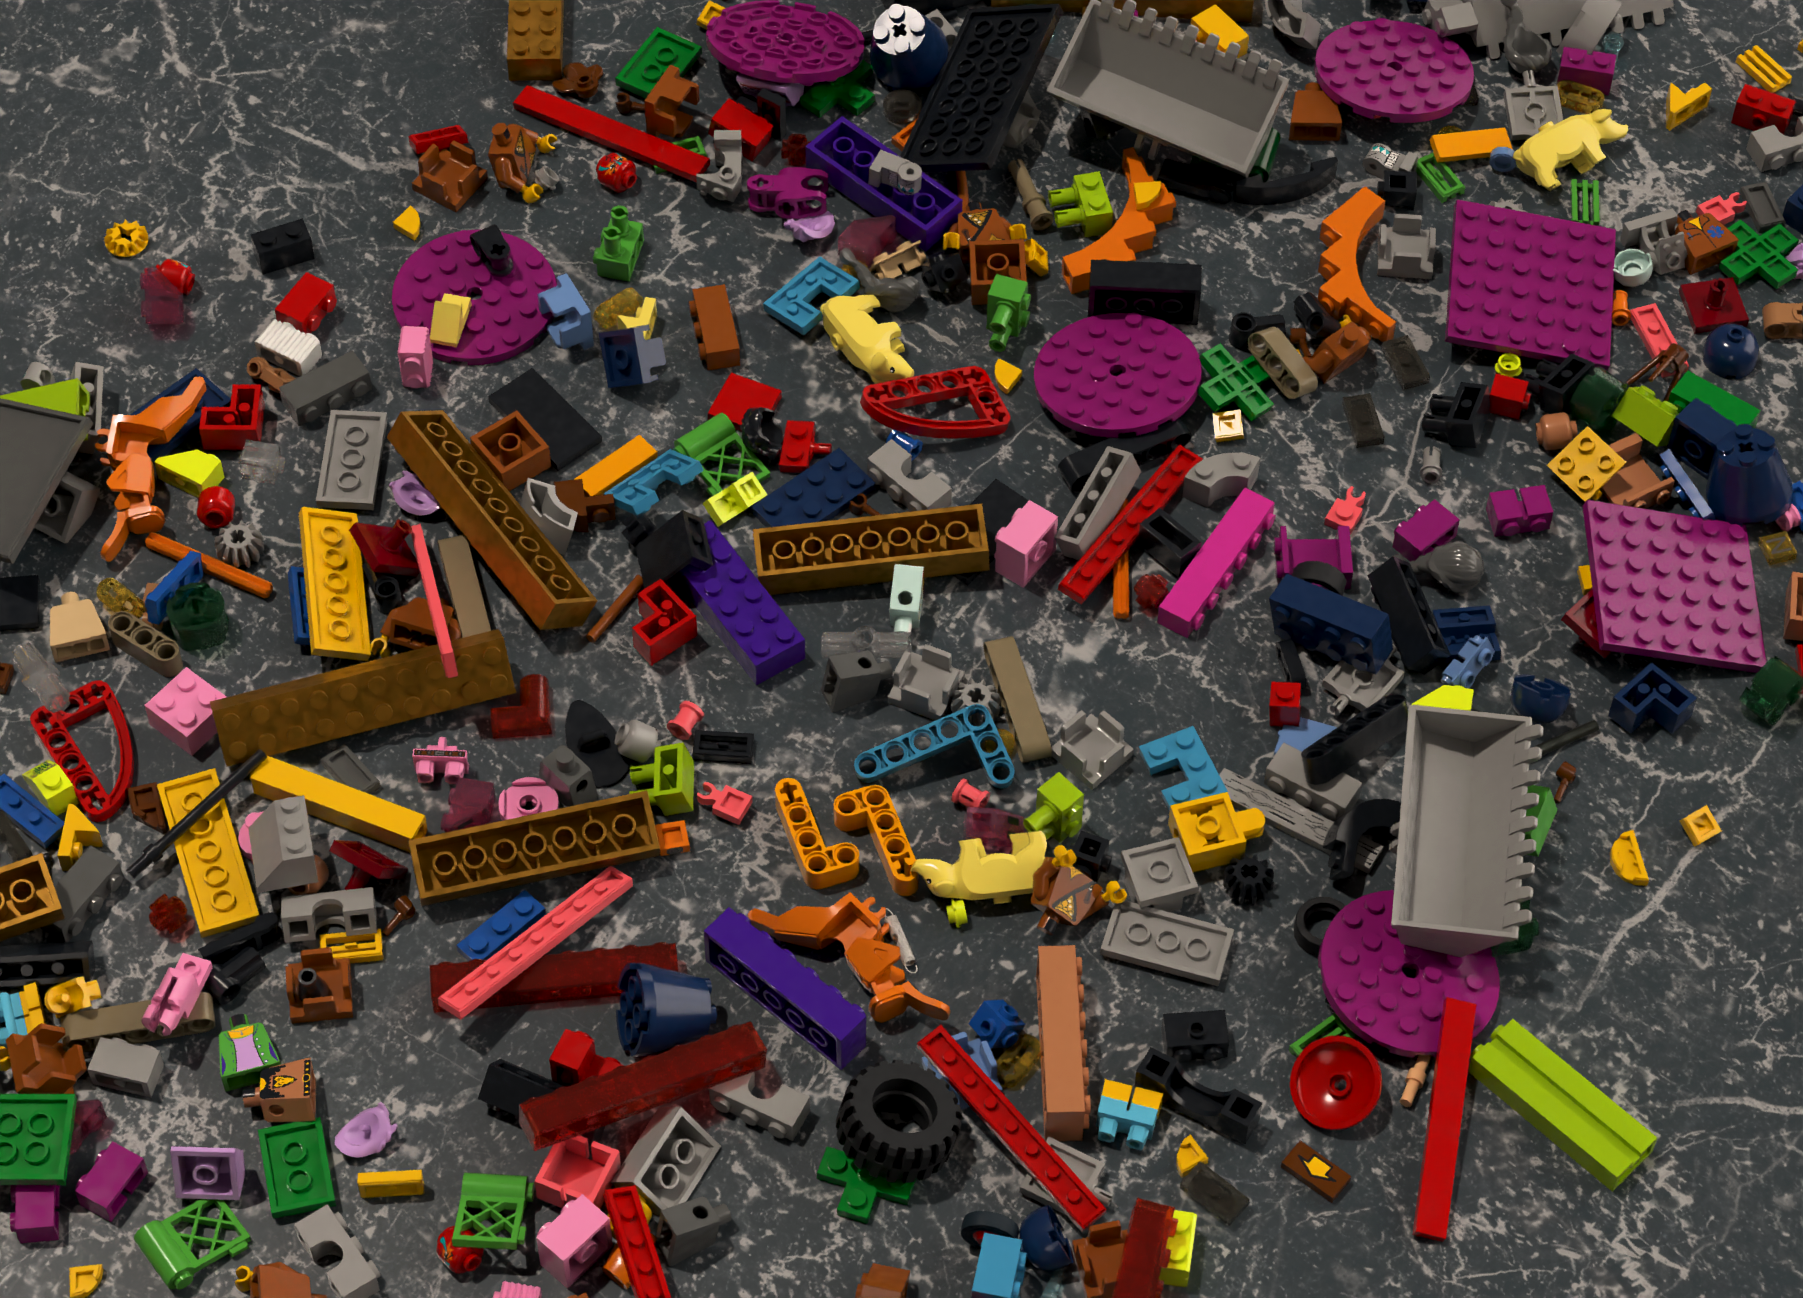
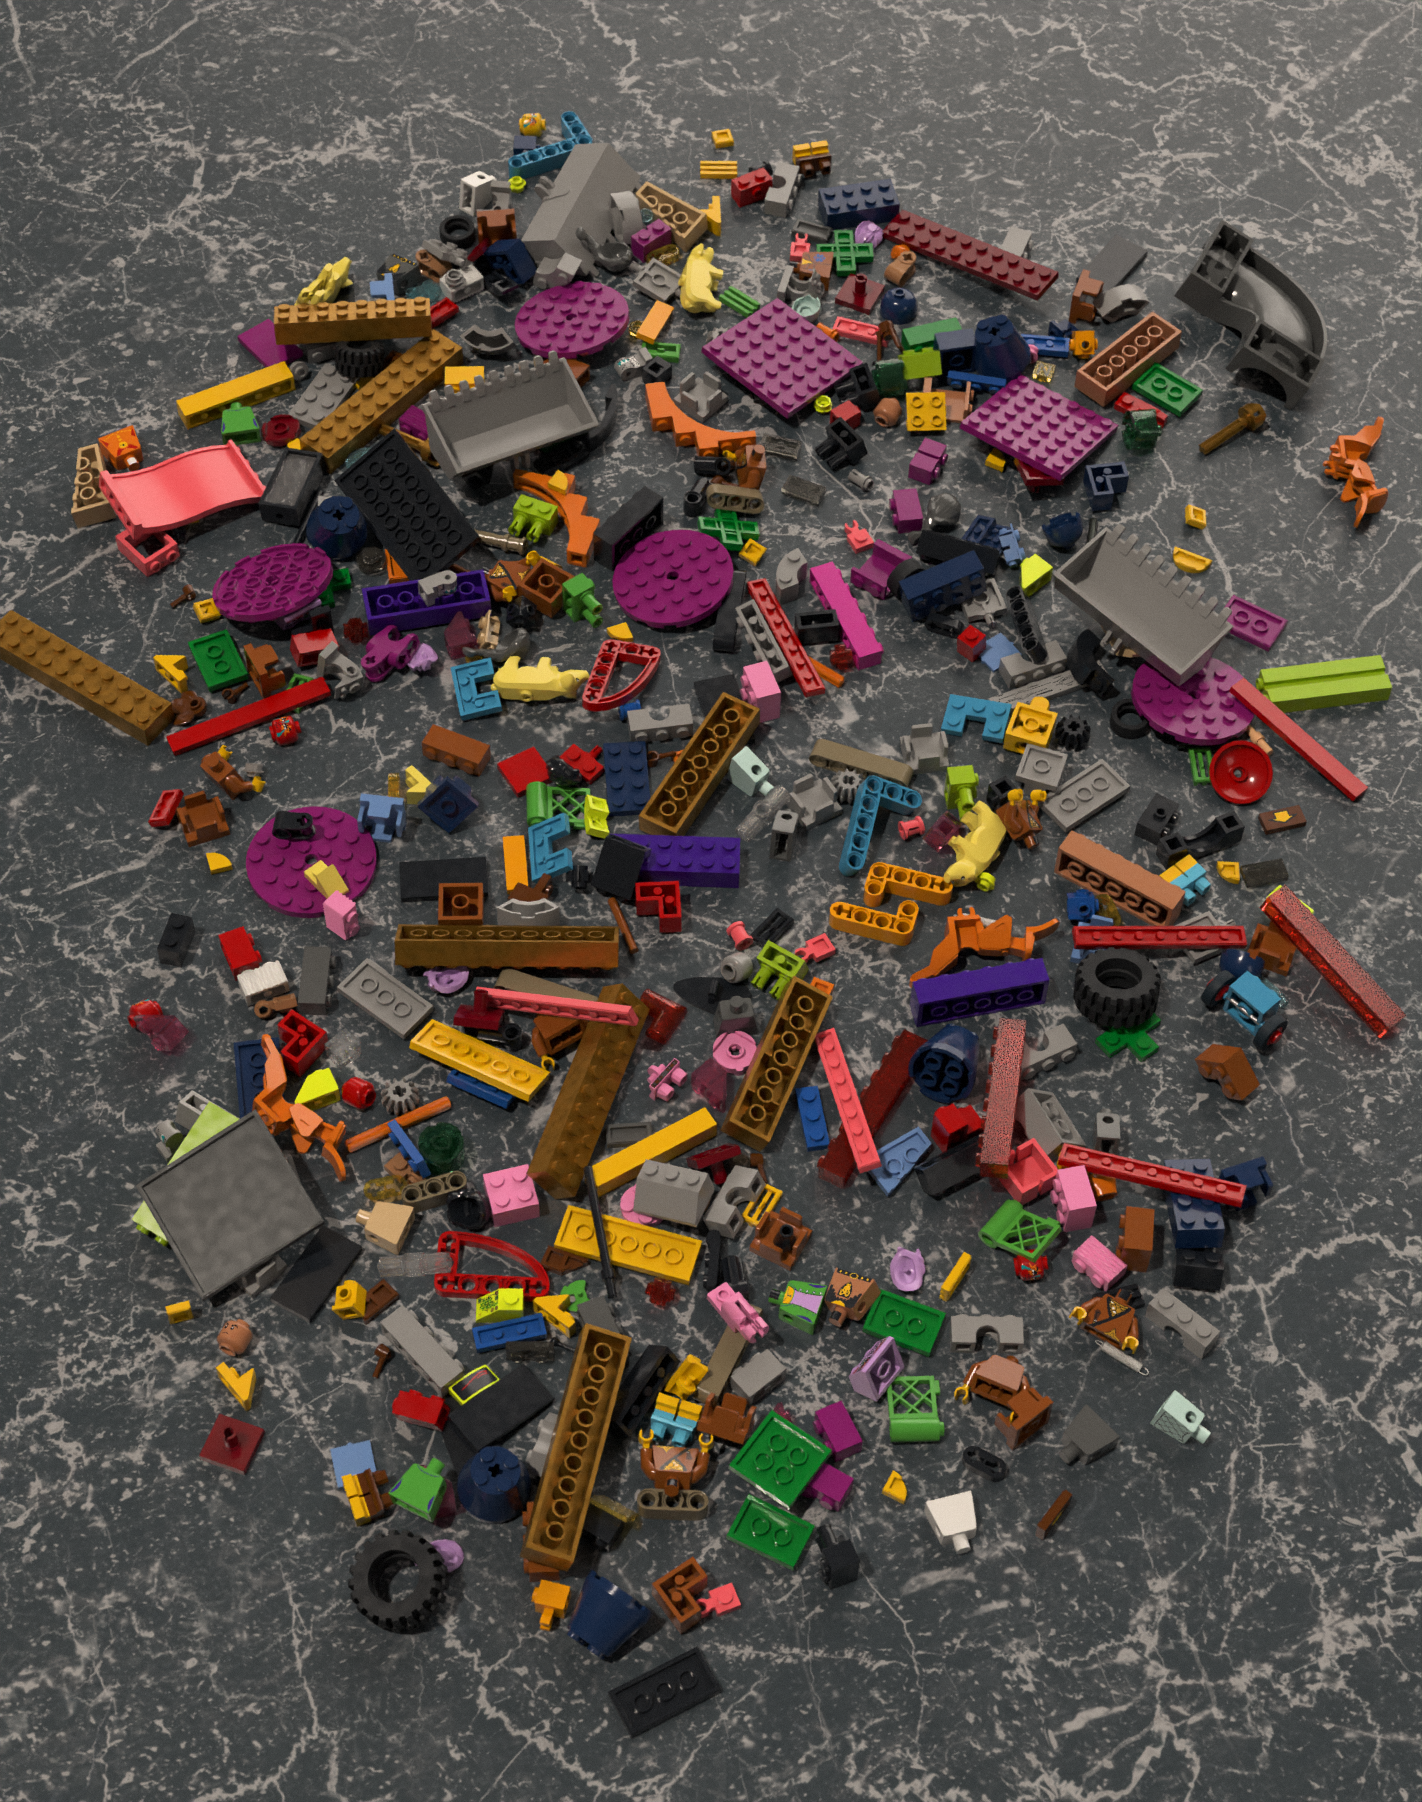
camera: 55 degrees left, 0 degrees up
(121, 246) = (87, 1030): yellow gear -> none
(121, 841) = (578, 1290): none -> bright green piece
(142, 681) = (468, 1209): none -> black hair
(500, 1036) = (899, 1159): none -> medium blue wing
(612, 37) = (172, 669): none -> yellow slope
(619, 246) = (347, 762): bright green brick -> none
(1502, 159) = (678, 315): medium blue tile -> none
(1592, 975) = (1254, 623): none -> magenta tile
(1640, 75) = (685, 221): none -> tan wedge

